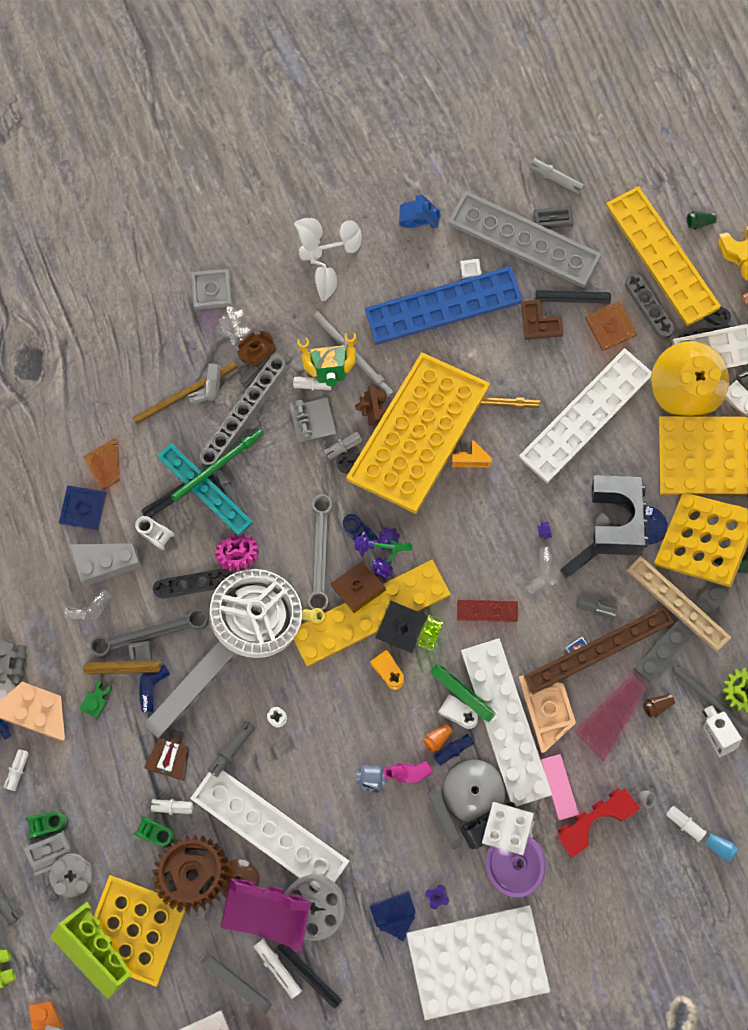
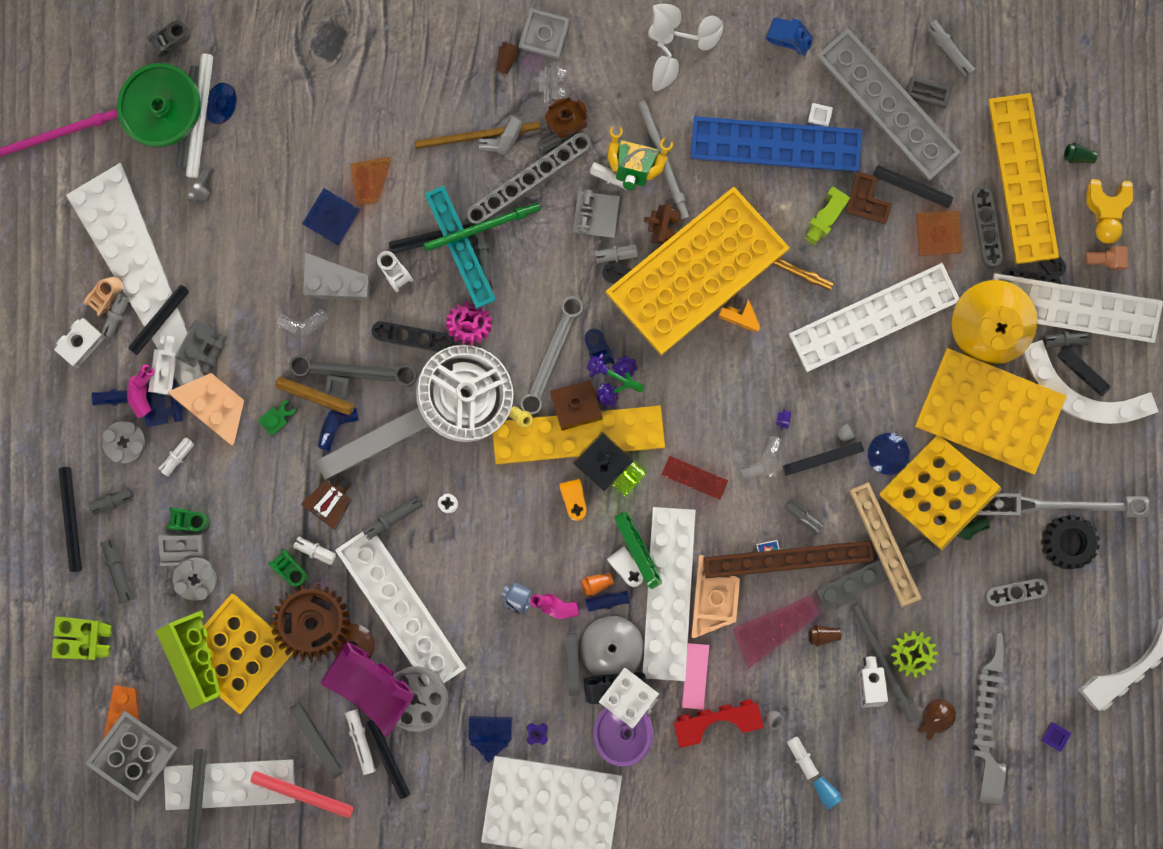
camera: 15 degrees right, 10 degrees up
(186, 319) = (506, 56): none -> reddish brown cone
(509, 352) = (826, 217): none -> lime hips
(628, 493) = (882, 415): arch -> none

